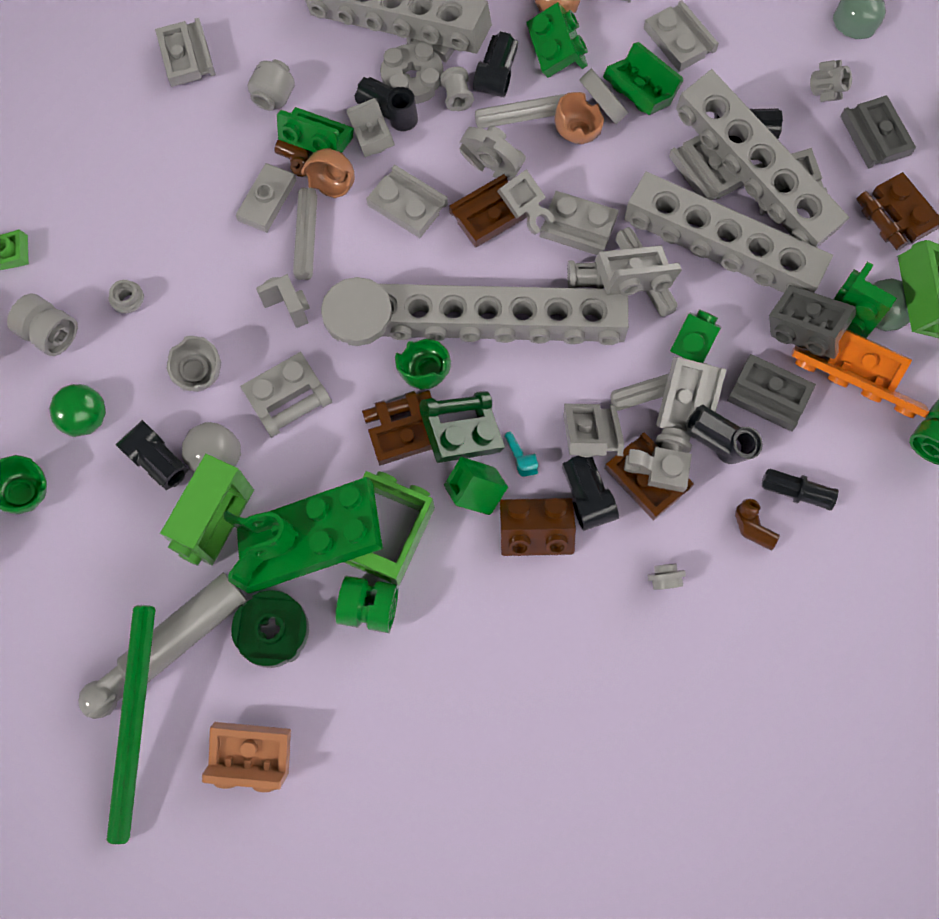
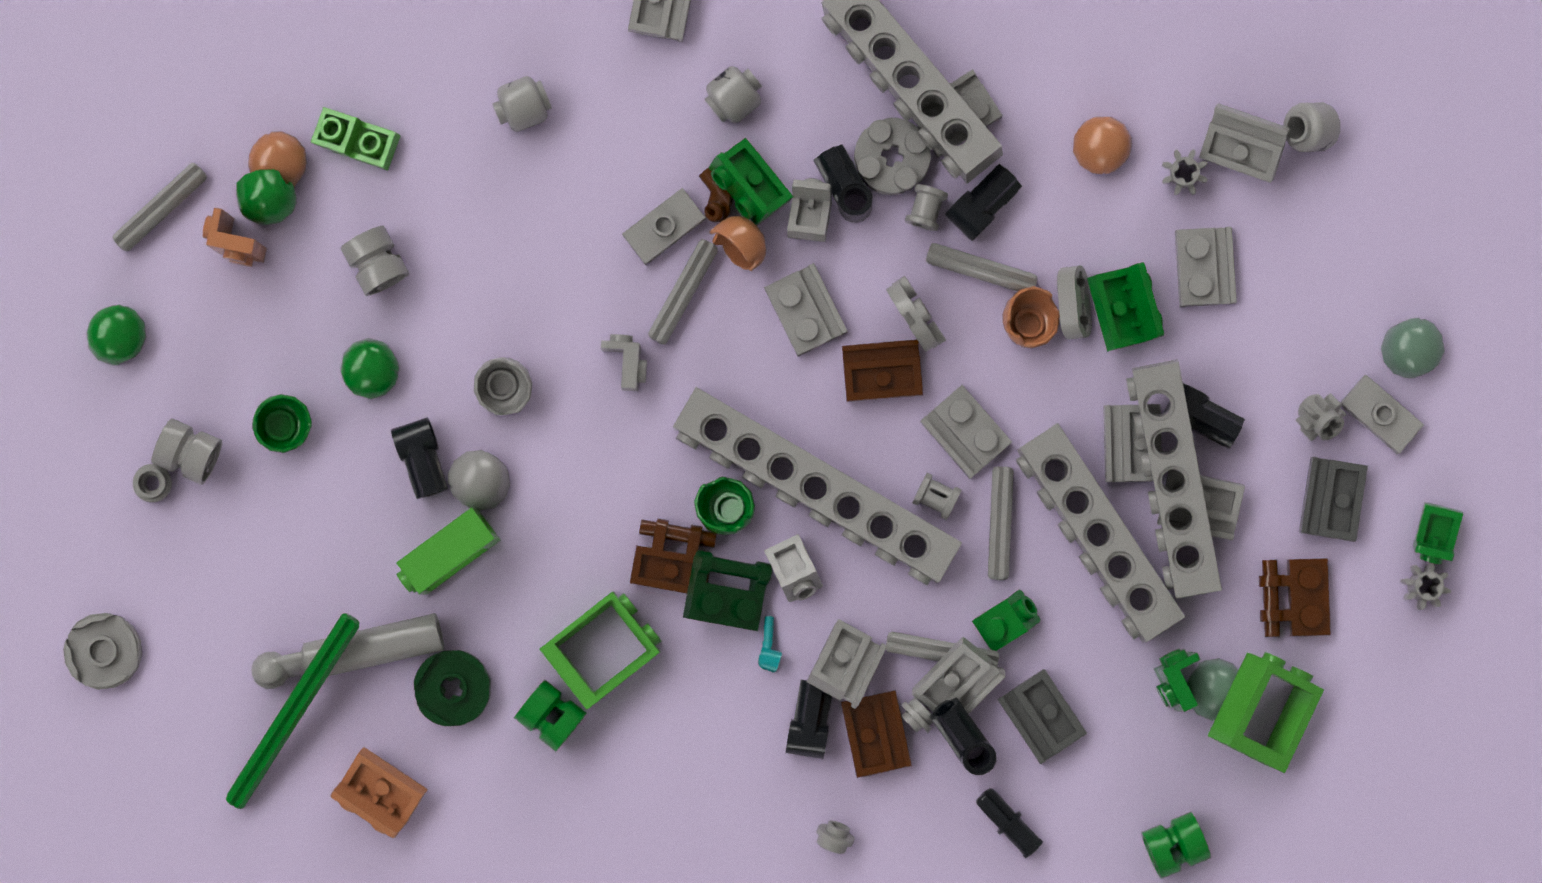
camera: 25 degrees right, 15 degrees up
(110, 162) = (522, 103): none -> light grey head
(122, 289) = (464, 256): light grey plate -> none
(282, 385) = (577, 448): light grey plate -> none
(305, 536) = (526, 624): green plate -> none
(356, 311) = (685, 425): light grey tile -> none
(475, 486) = (708, 655): green panel -> none
(507, 384) = (794, 569): none -> light grey bracket
(523, 197) = (918, 386): light grey plate -> none
(537, 527) = (745, 724): reddish brown bracket -> none
(557, 40) = (1067, 204): green bracket -> none
(636, 270) = (980, 528): light grey bracket -> none
(665, 467) = (890, 739): light grey plate -> none
(750, 525) = (942, 832): reddish brown arm -> none
(810, 321) = (1119, 669): dark grey bracket -> none
(867, 366) = (1143, 743): orange bracket -> none
(872, 64) = (1381, 414): none -> light grey plate

